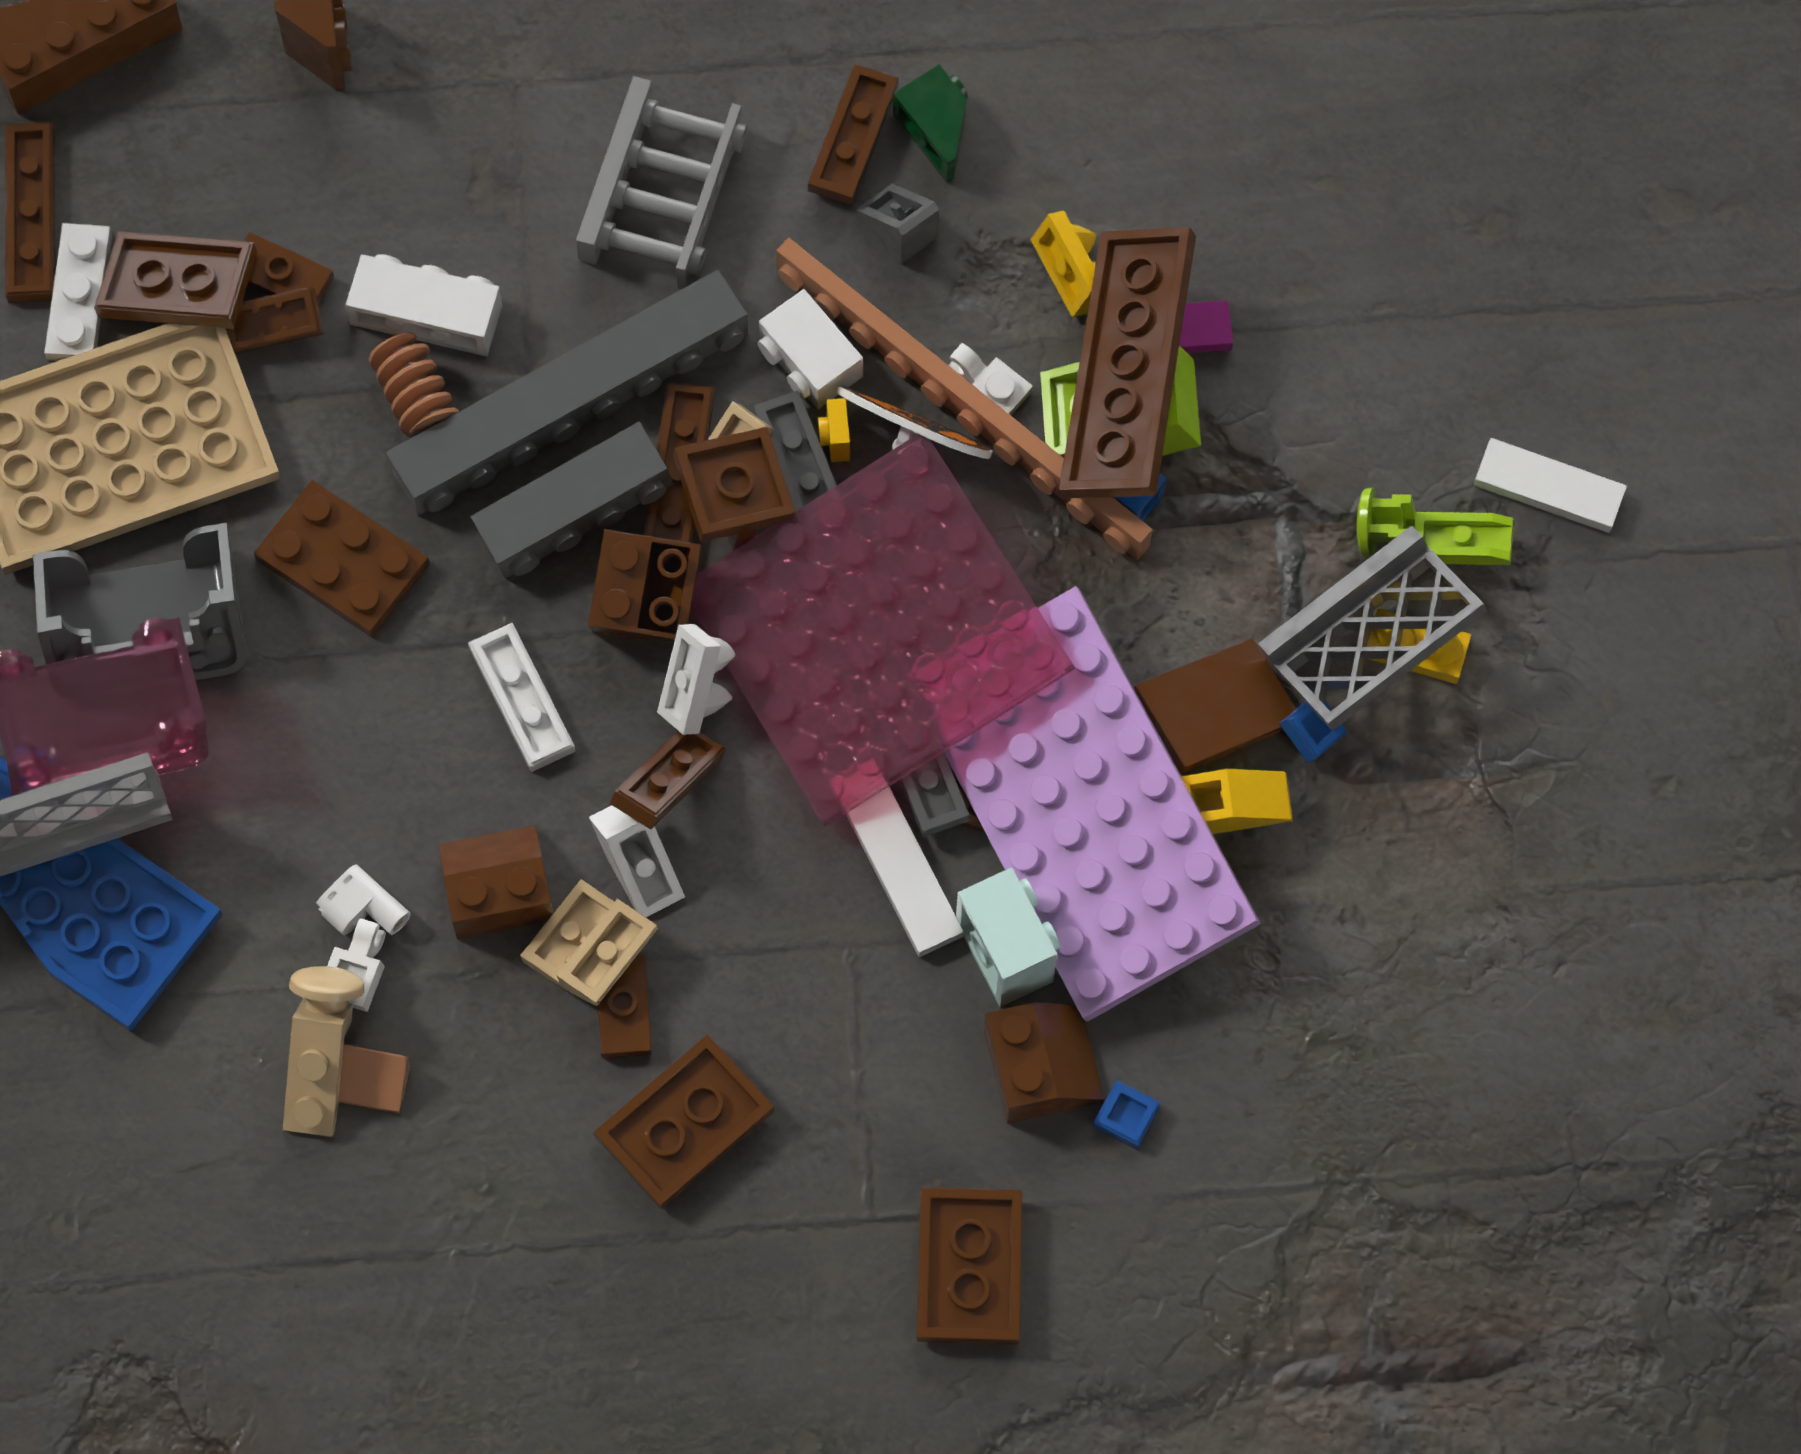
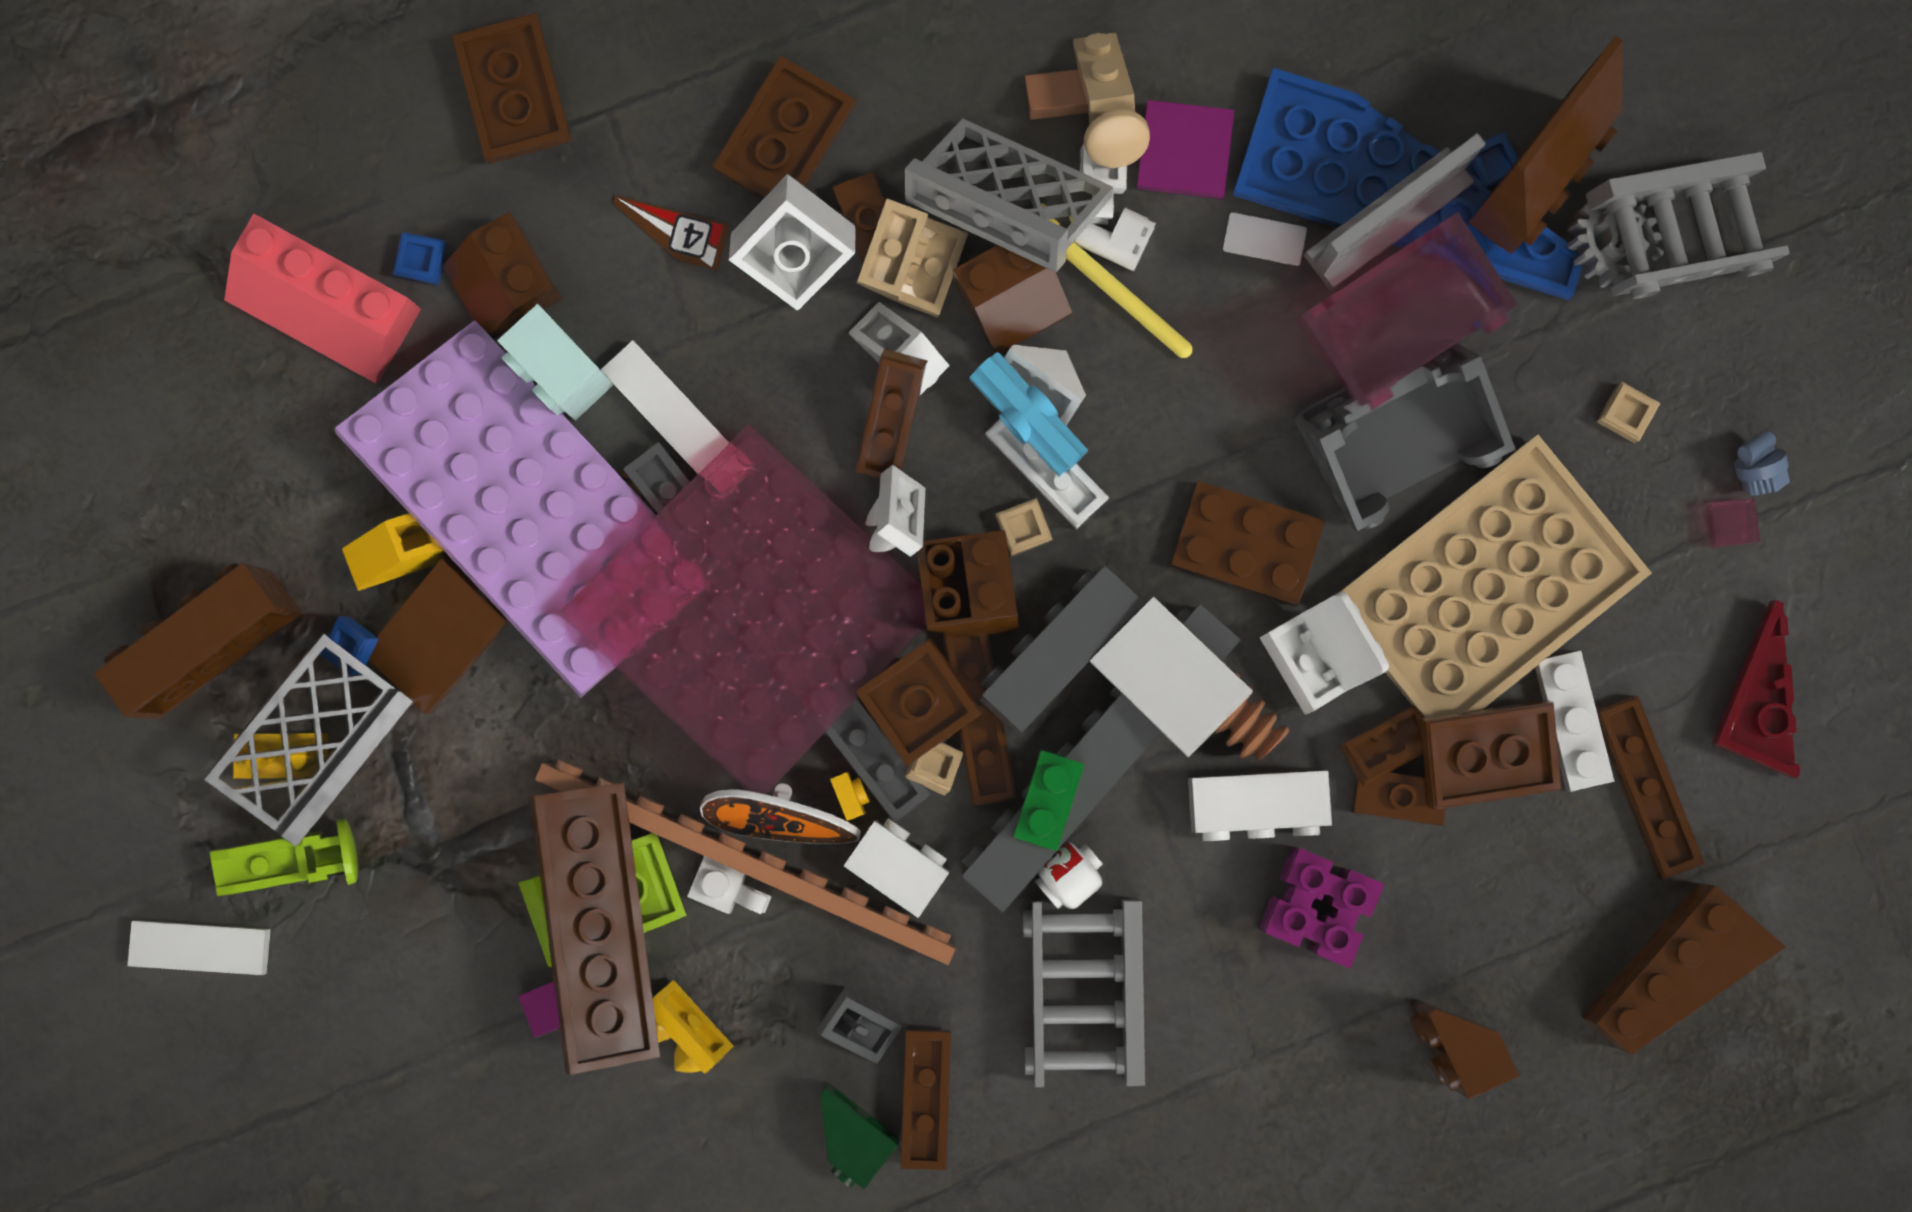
camera: 170 degrees right, 15 degrees up
(204, 862) = (1265, 239): none -> white sticker
(250, 978) = (1186, 150): none -> magenta tile
(307, 421) = (1325, 652): none -> white bracket
(400, 190) = (1346, 895): none -> magenta brick
(437, 939) = (1127, 300): none -> light yellow piece
(470, 431) = (1171, 676): none -> white tile
(492, 780) = (1052, 374): none -> white slope
(500, 949) = (991, 213): none -> light grey fence
(523, 739) = (1028, 414): none -> medium azure piece
(567, 643) = (1024, 527): none -> tan tile
(635, 354) = (1049, 800): none -> green plate
(637, 287) = (1070, 876): none -> white head
(712, 989) = (792, 242): none -> white slope
(833, 1058) = (681, 234): none -> sticker
(1246, 1098) = (317, 299): none -> coral slope
(1466, 766) = (196, 641): none -> reddish brown brick

